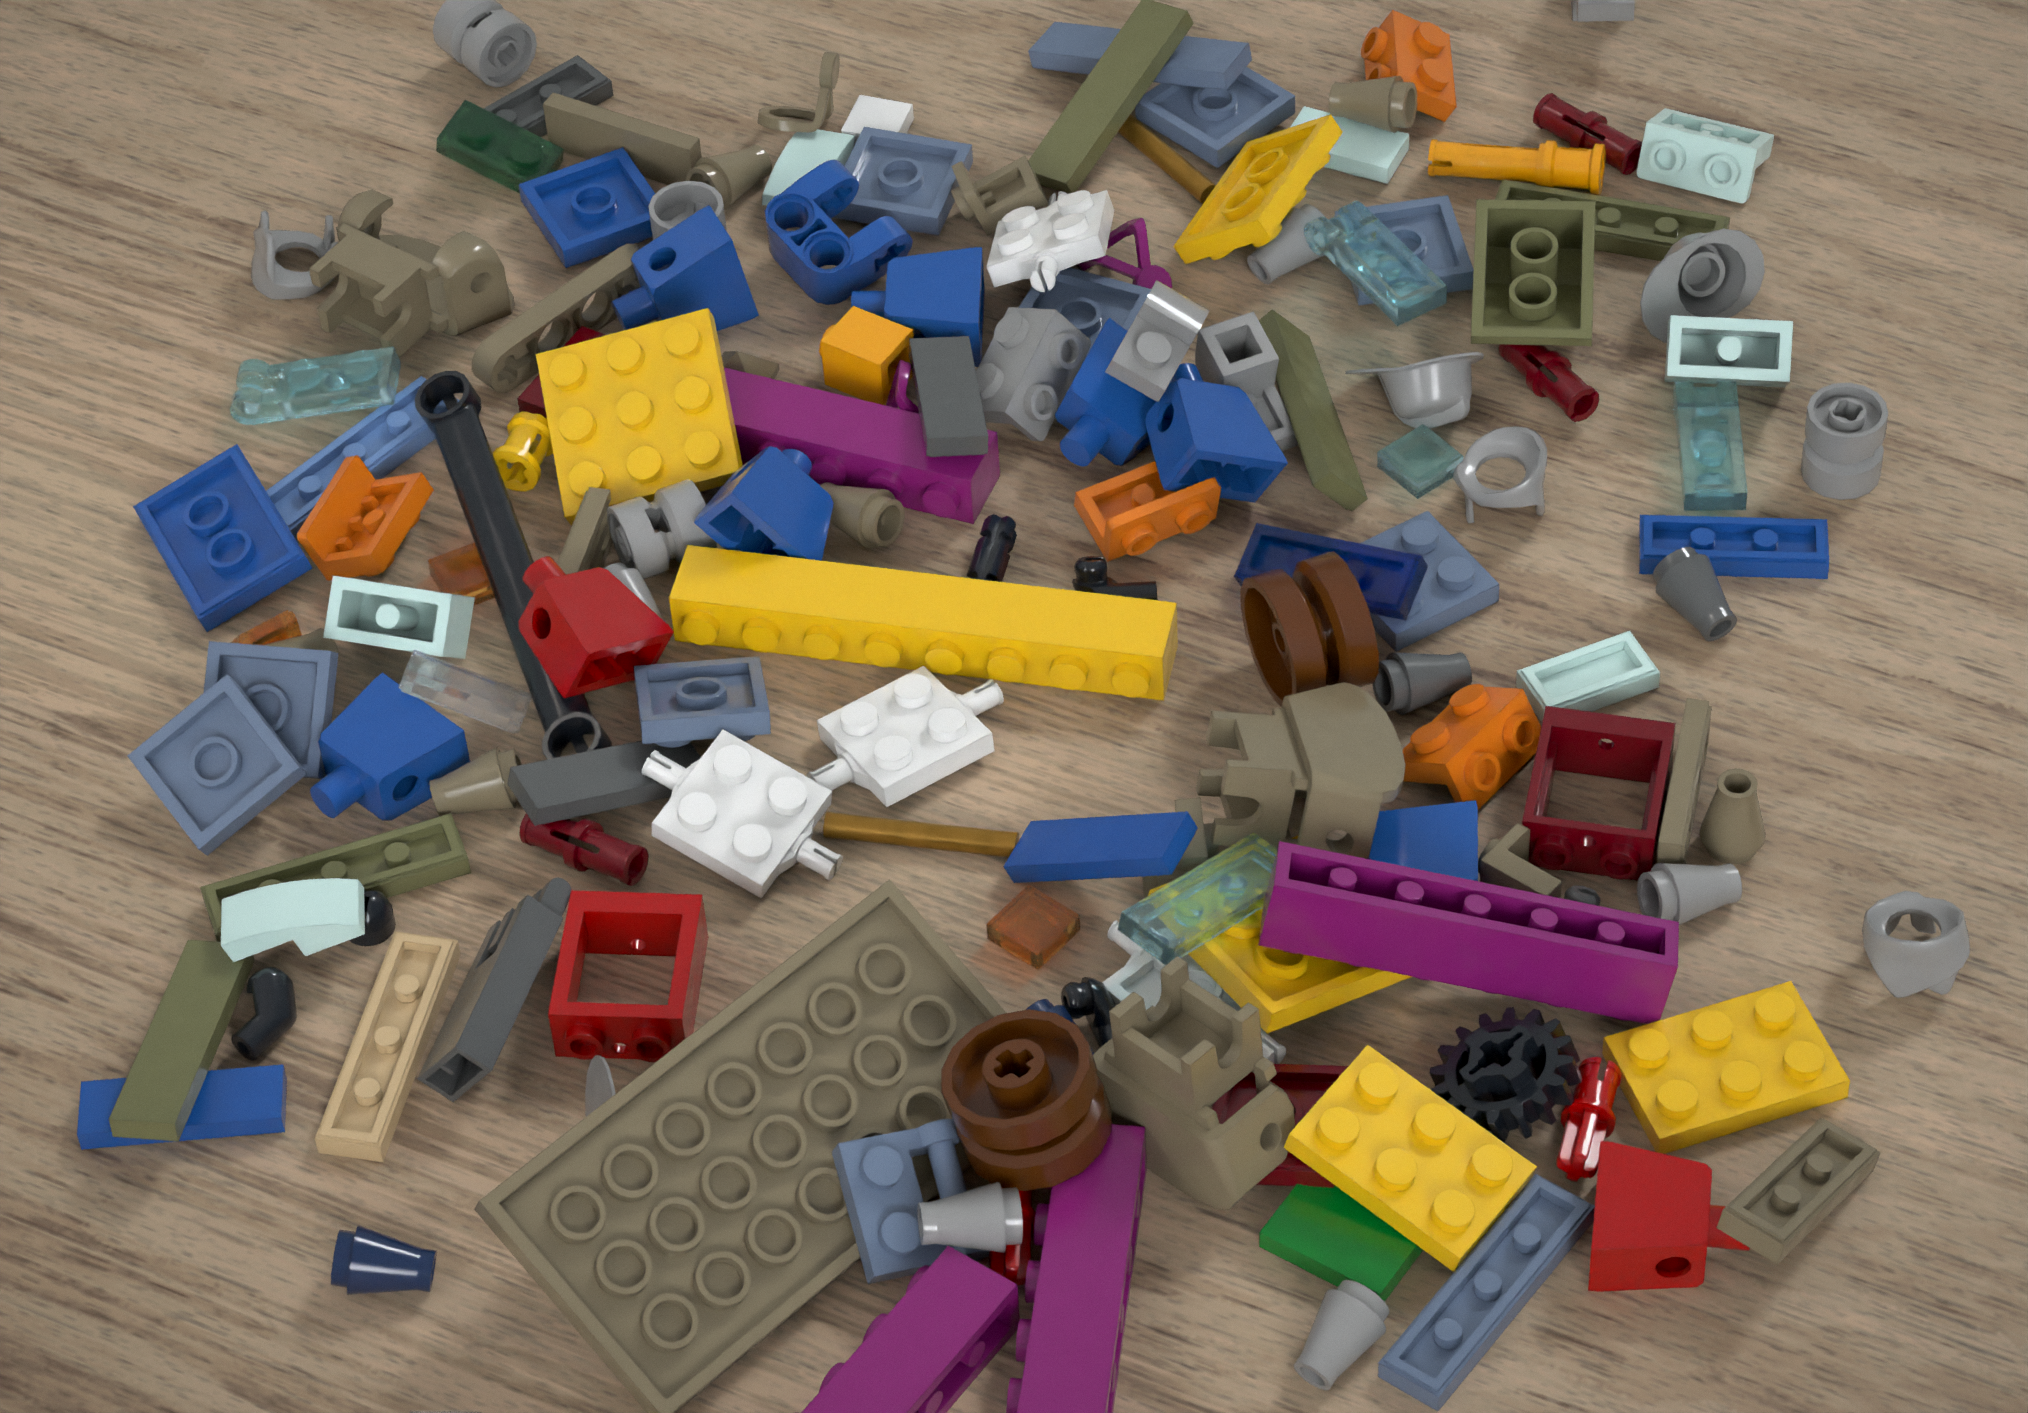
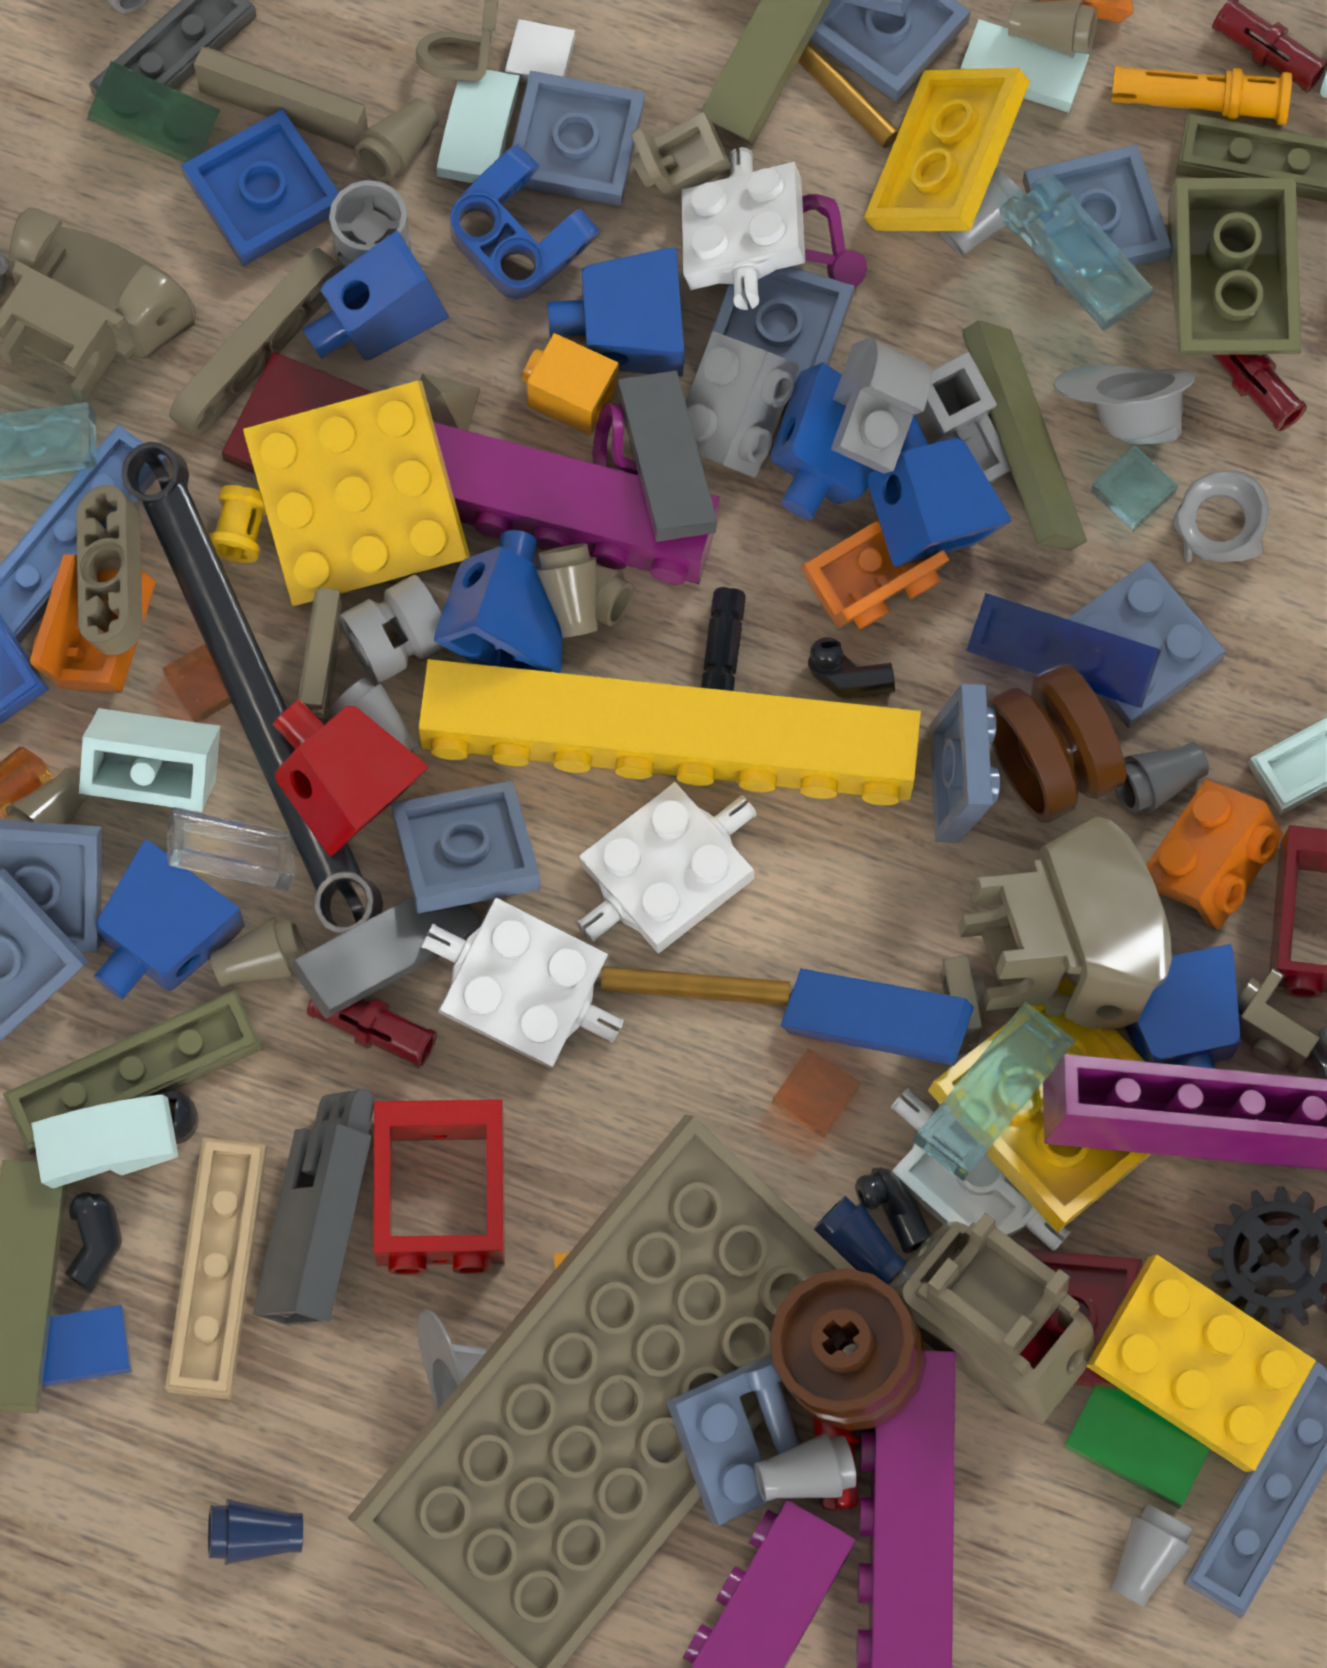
camera: 10 degrees left, 25 degrees up
(387, 469) = (123, 590): none -> dark tan beam
(837, 489) = (570, 585): none -> dark tan cone
(1215, 644) = (961, 763): none -> sand blue plate

